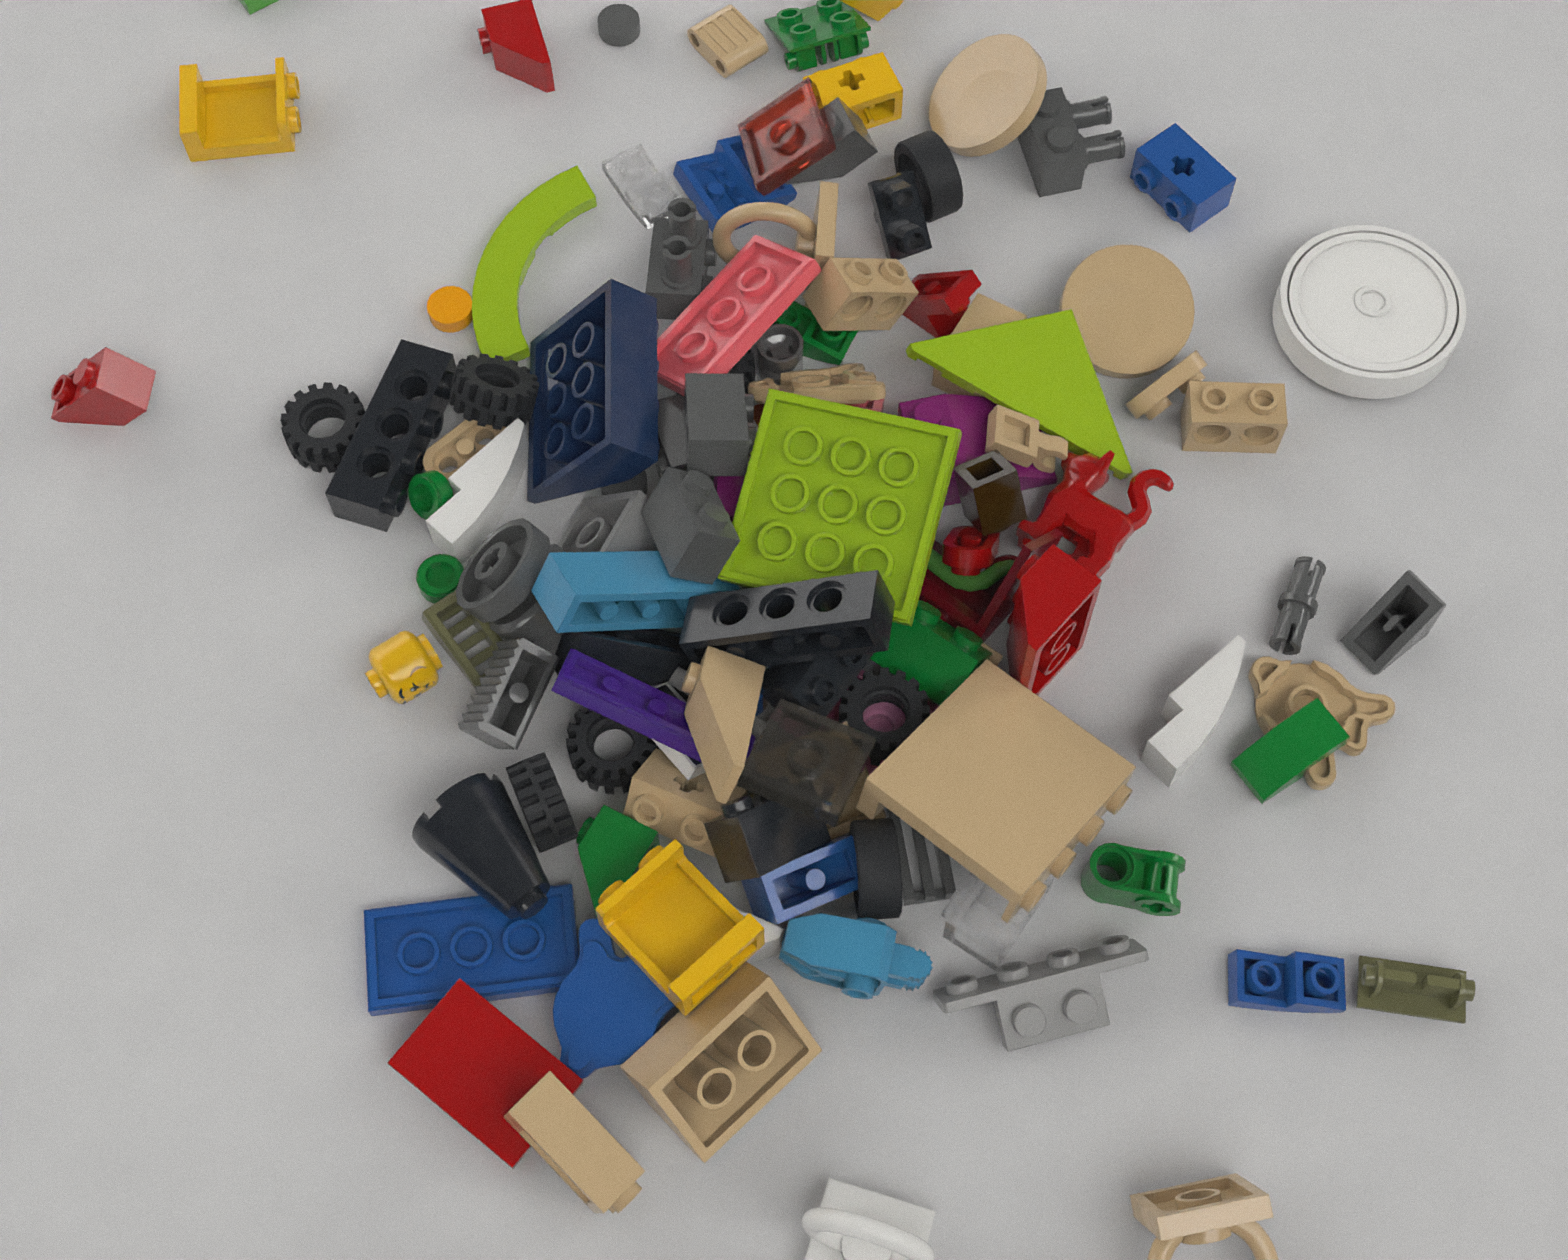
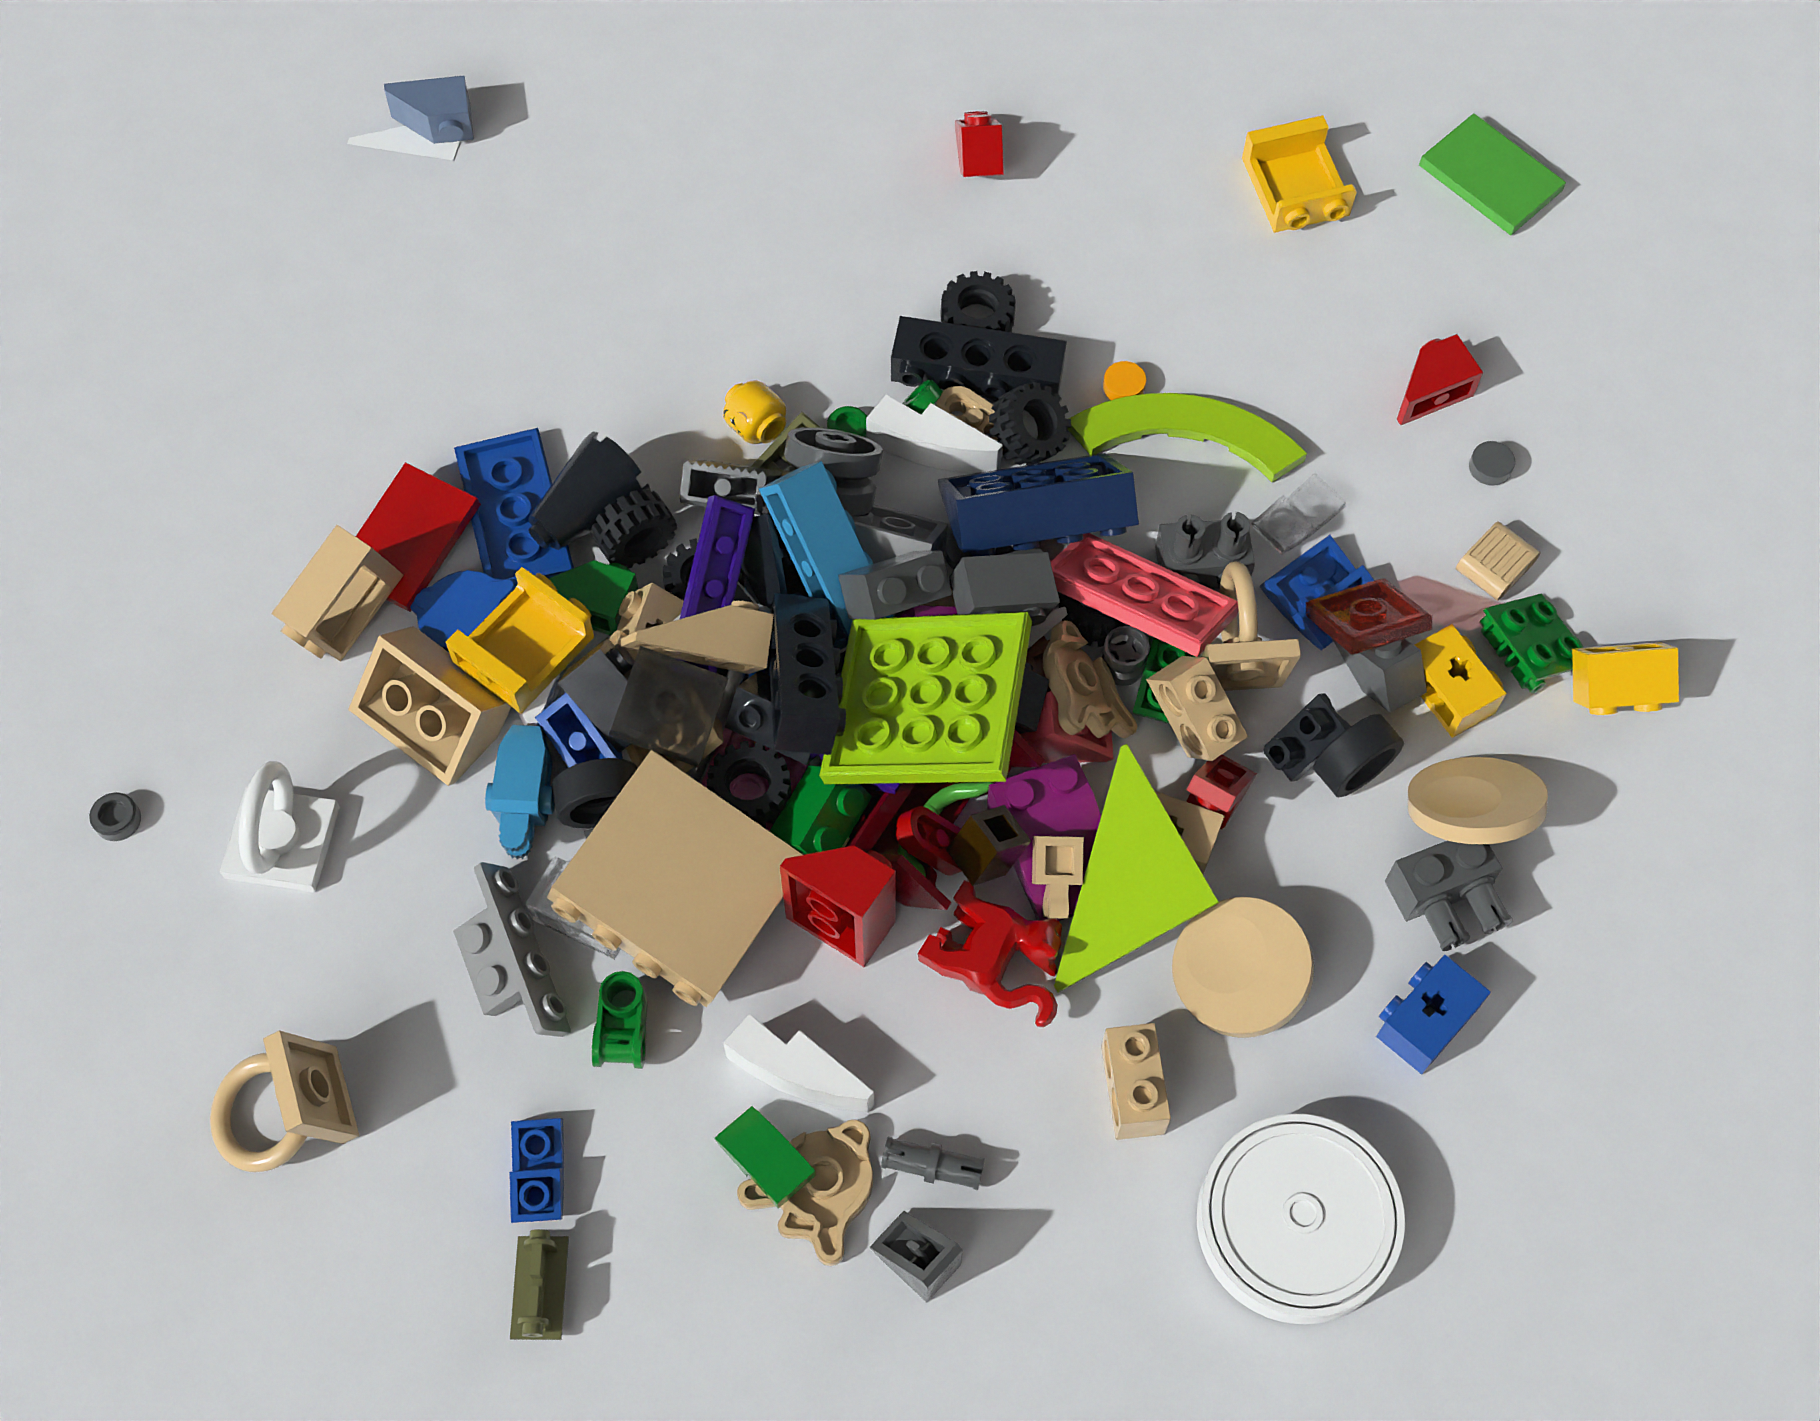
camera: 80 degrees right, 0 degrees up
(1154, 398) = (1177, 1031): tan plate -> none

